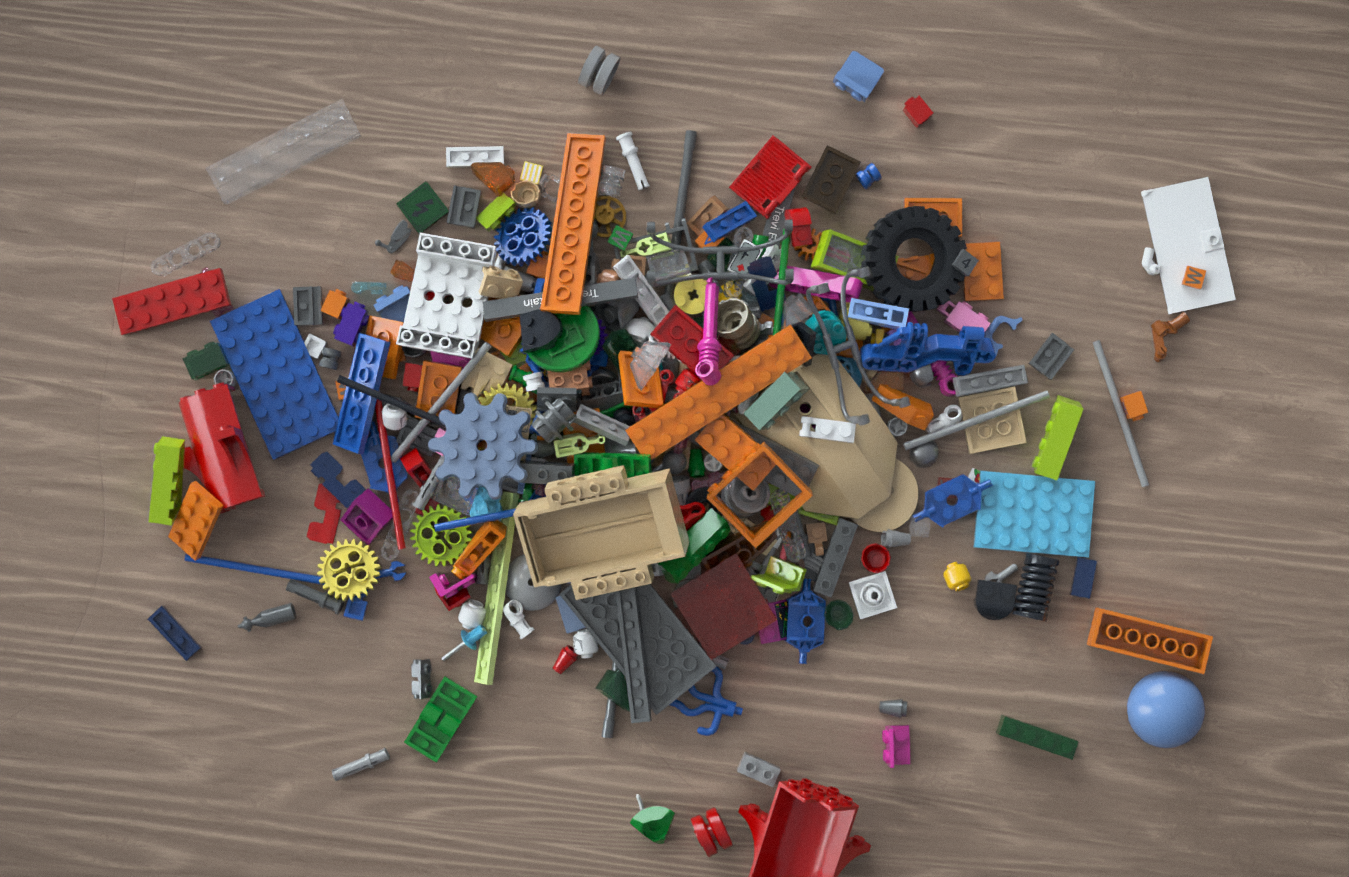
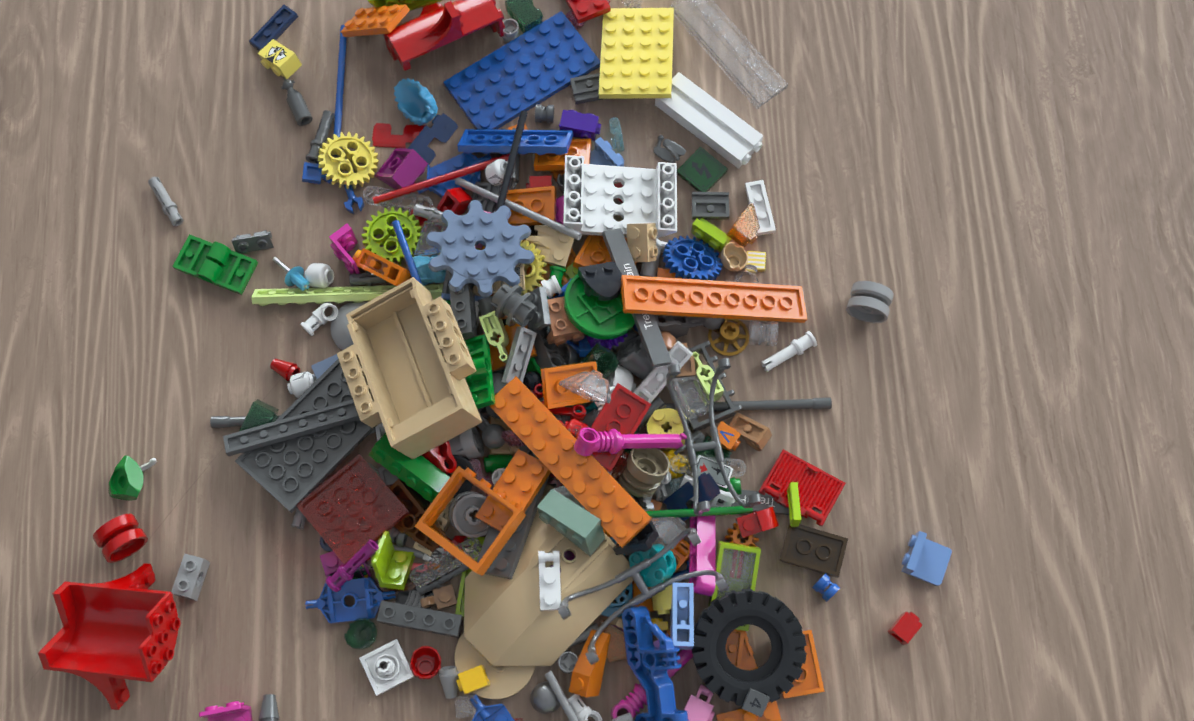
camera: 80 degrees right, 15 degrees down
(217, 629) = (279, 59): none -> light yellow brick
(278, 249) = (636, 53): none -> light yellow plate
(297, 491) = (415, 101): none -> dark azure piece
(314, 345) = (556, 99): white tile -> none
(334, 303) = (598, 107): orange brick -> none
(368, 189) = (710, 121): none -> white brick
(402, 271) = (639, 159): clear orange cone -> none
(456, 600) = (330, 258): red bracket -> none
(620, 238) = (709, 348): green tile -> none
(716, 704) = (255, 523): blue plant -> none
(729, 221) = (748, 451): blue plate -> none
(784, 619) = (347, 571): none -> magenta pin
(790, 189) = (794, 504): none -> lime tile
(899, 516) = (473, 680): none -> yellow brick
(922, 376) = (626, 679): flat silver hair -> none

